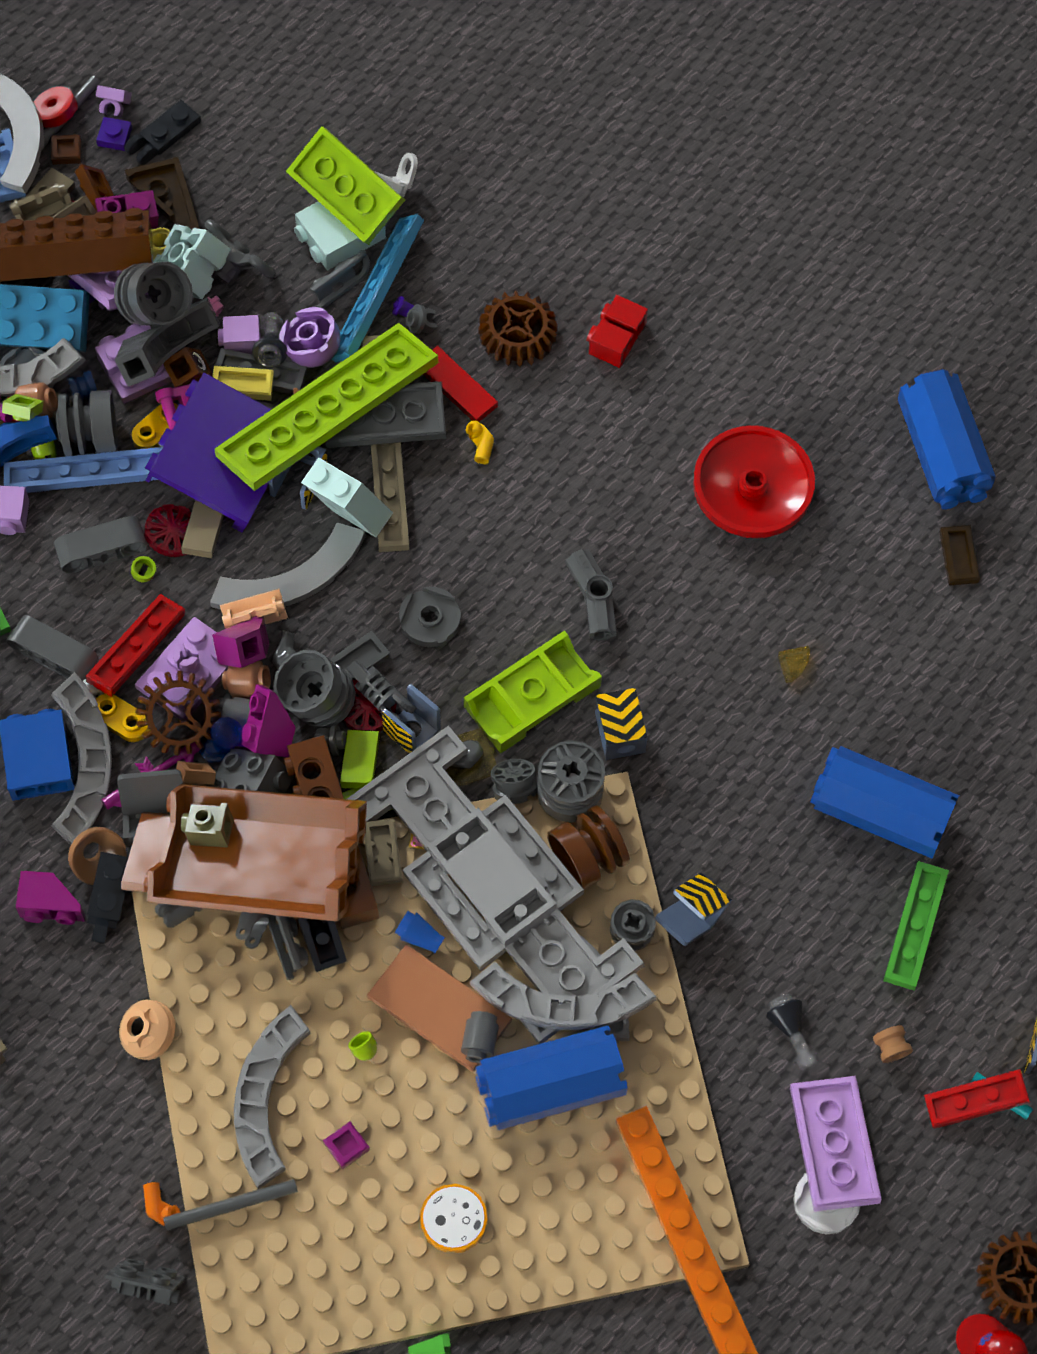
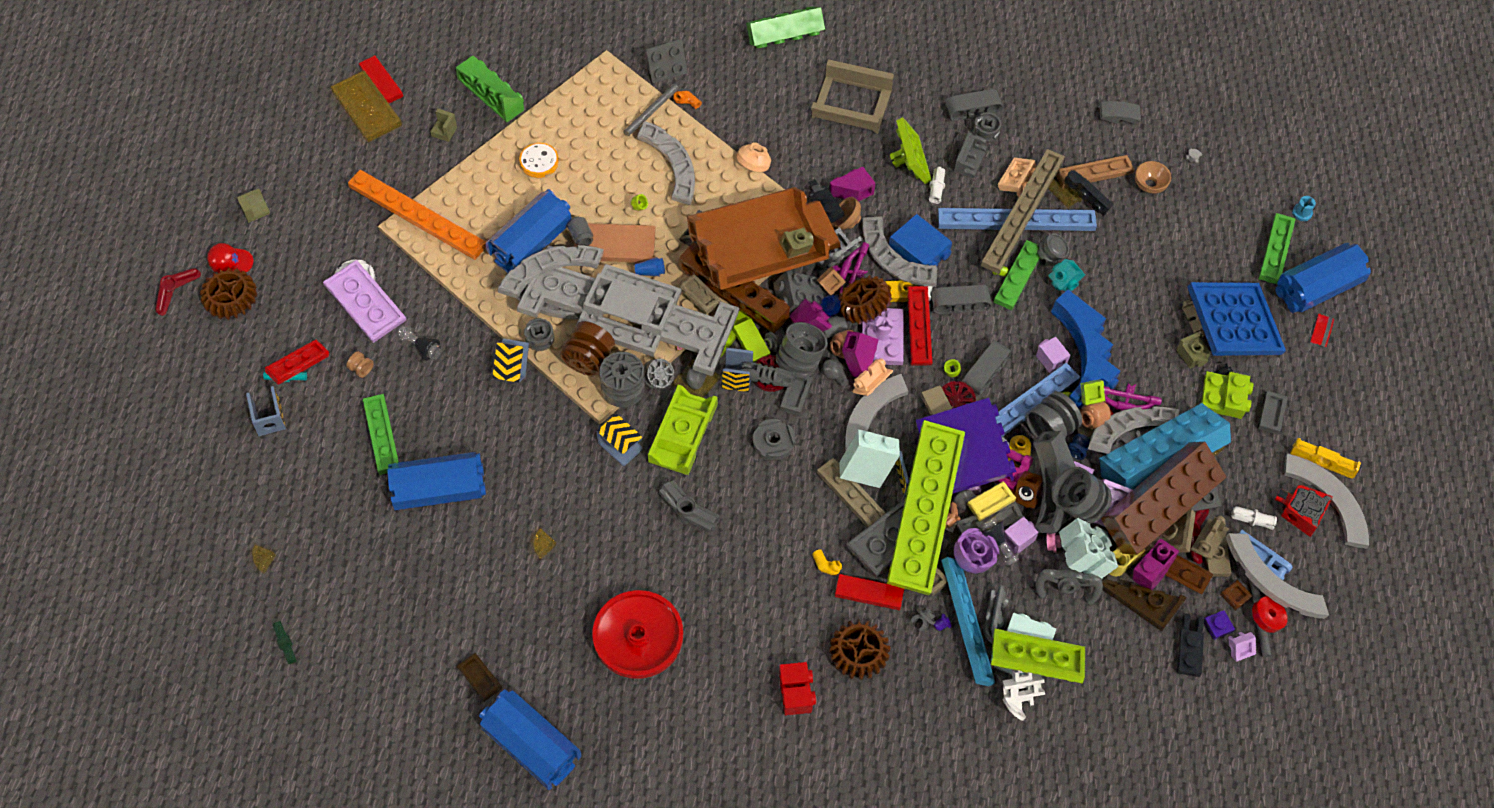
camera: 145 degrees right, 5 degrees down
(346, 1145) = (615, 161): magenta tile -> none

